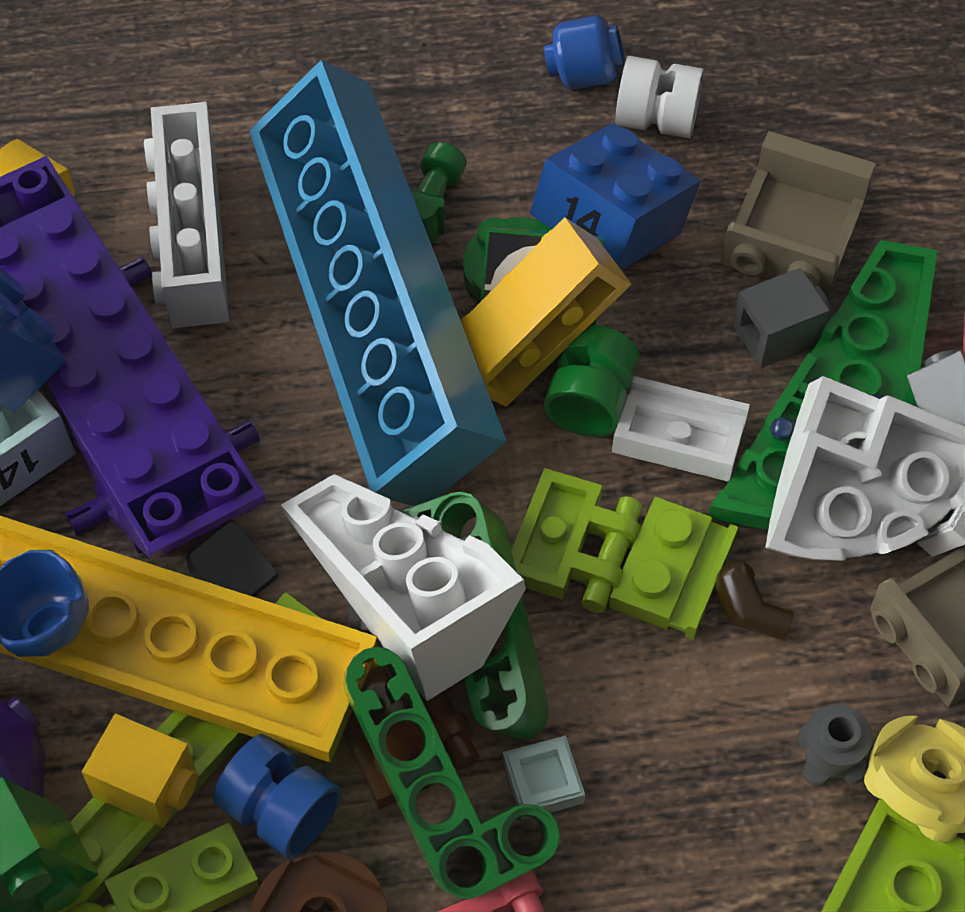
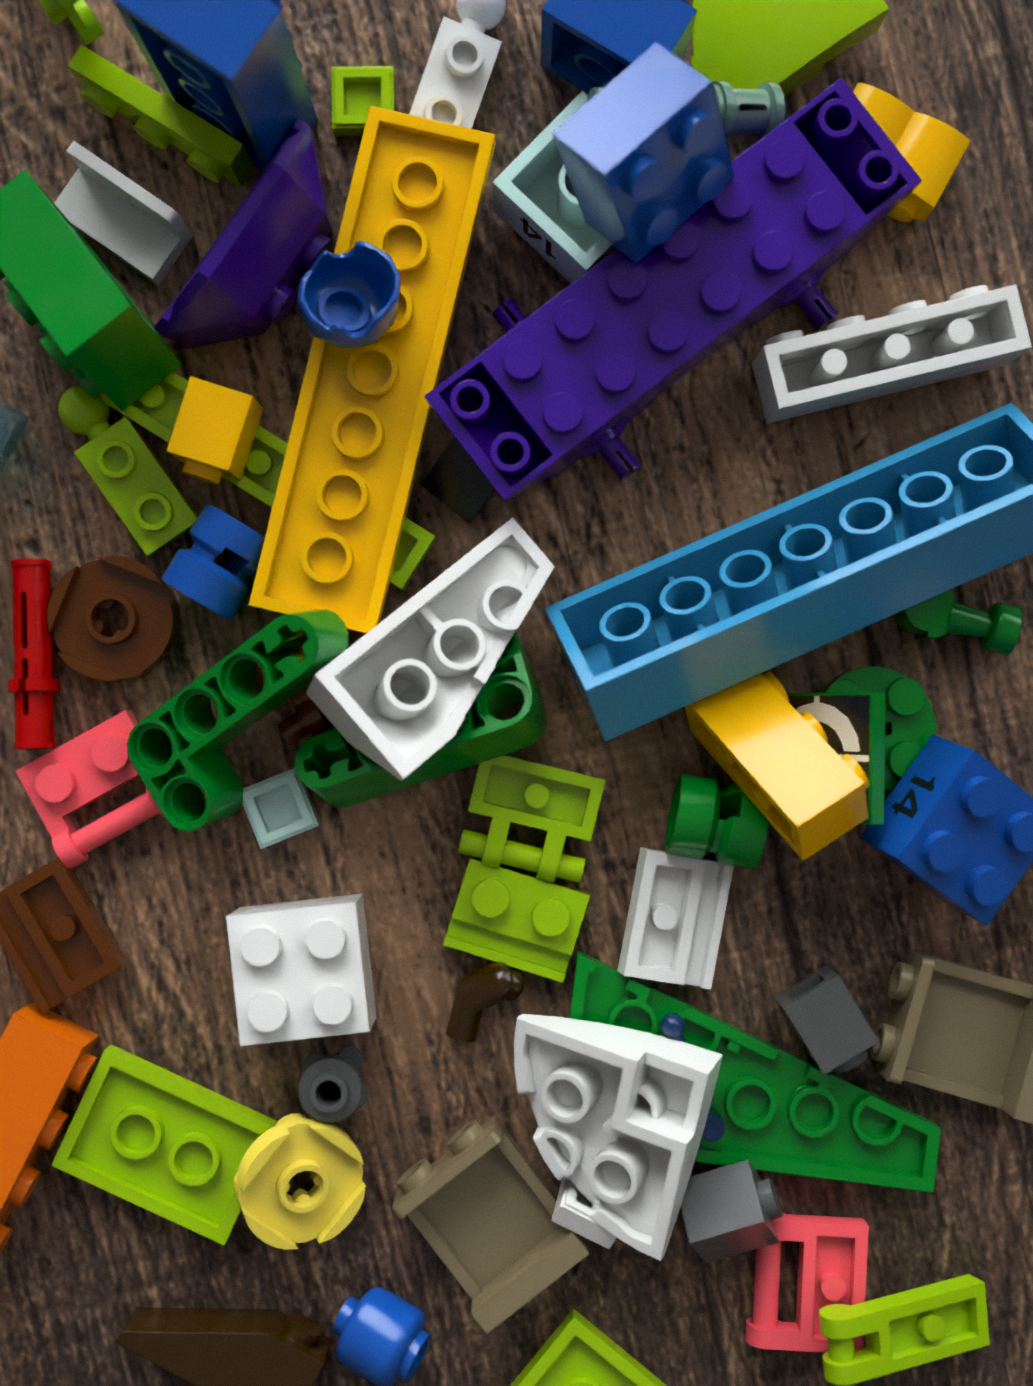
camera: 85 degrees right, 30 degrees up
(713, 755) = (301, 969): none -> white brick

